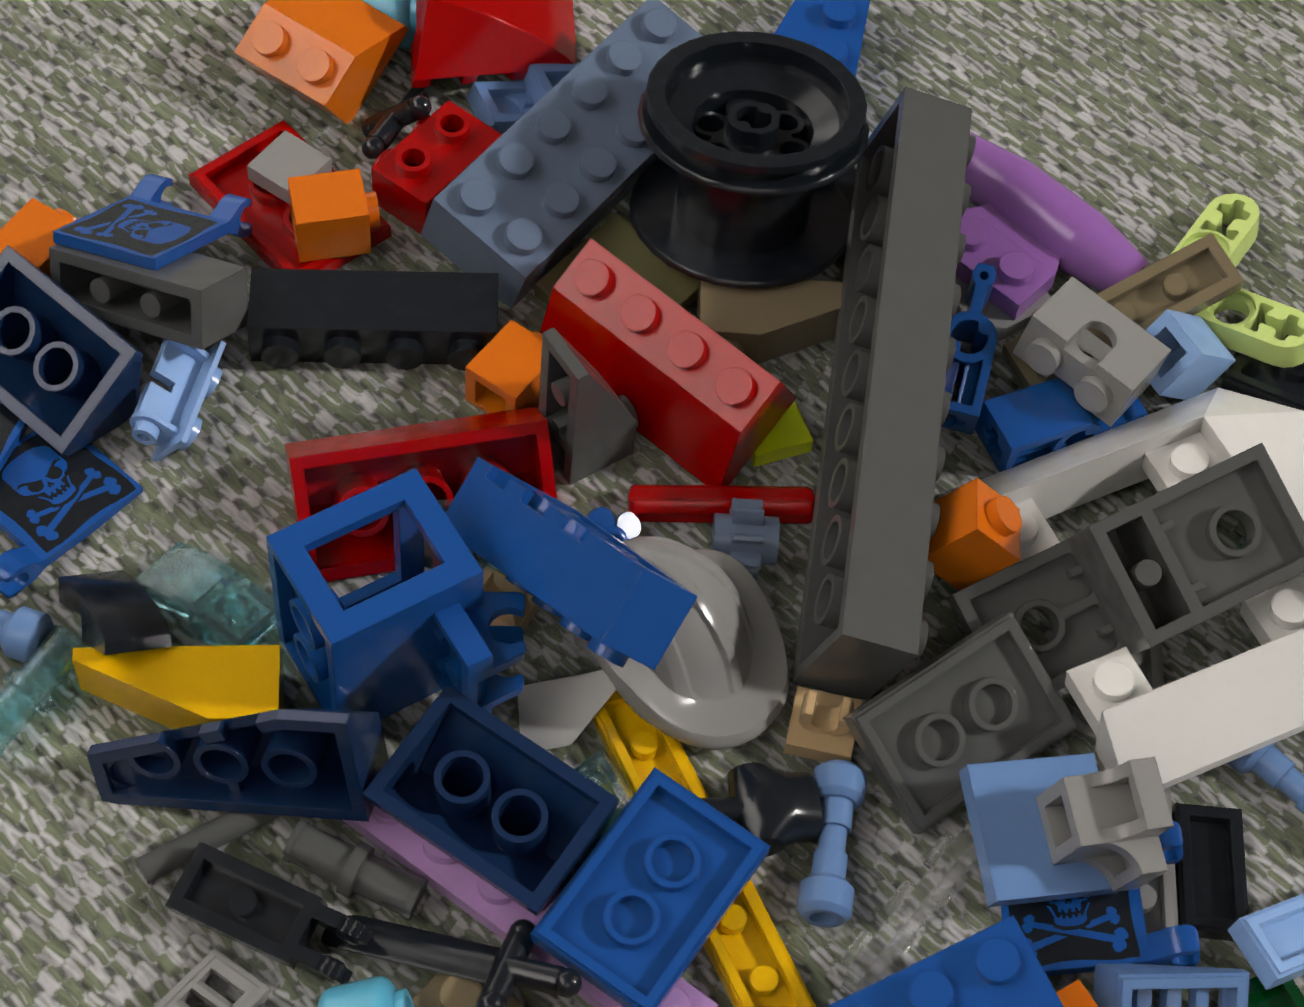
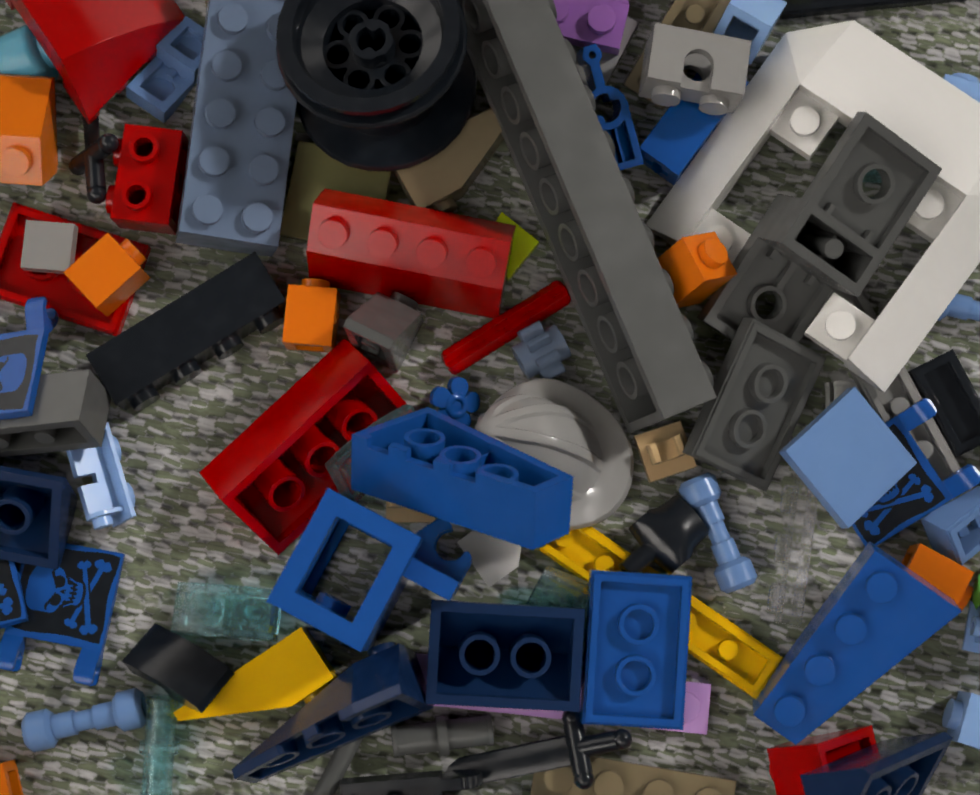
camera: 25 degrees left, 25 degrees up
(1110, 822) = (892, 437): light grey brick -> none

